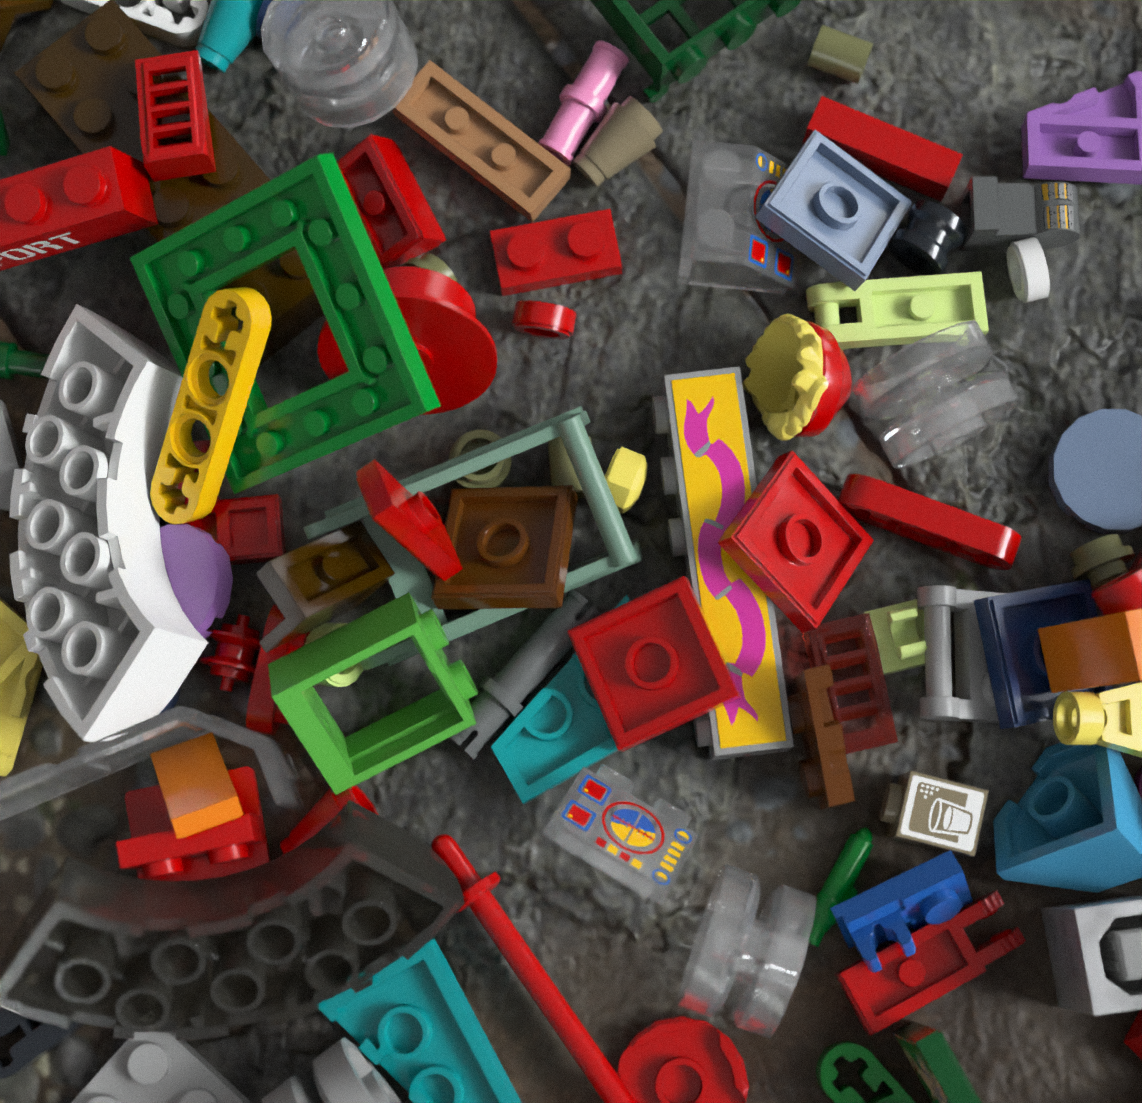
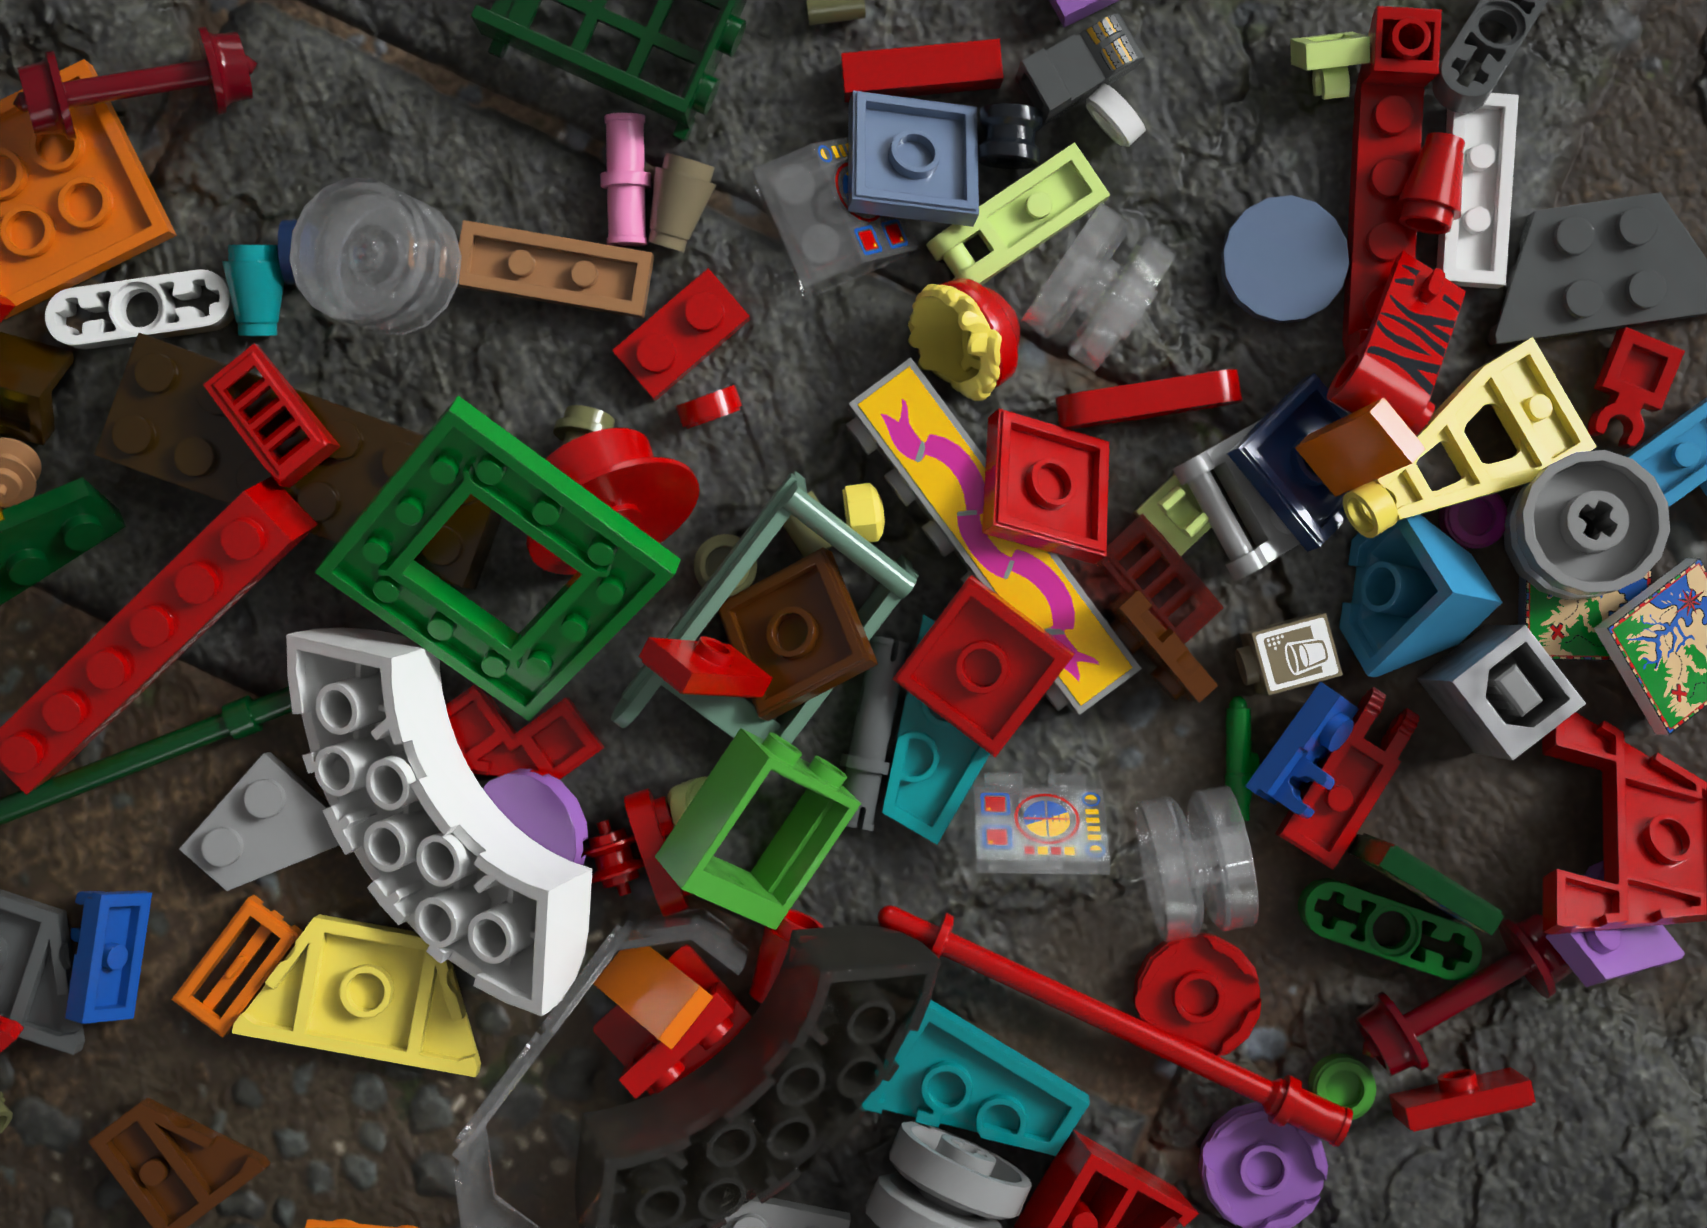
camera: 30 degrees left, 10 degrees up
(200, 402) = (461, 666): yellow beam -> none
(322, 581) = (660, 758): dark brown panel -> none
(389, 201) = (500, 373): red slope -> none
(1101, 560) = (1316, 350): olive plate -> none

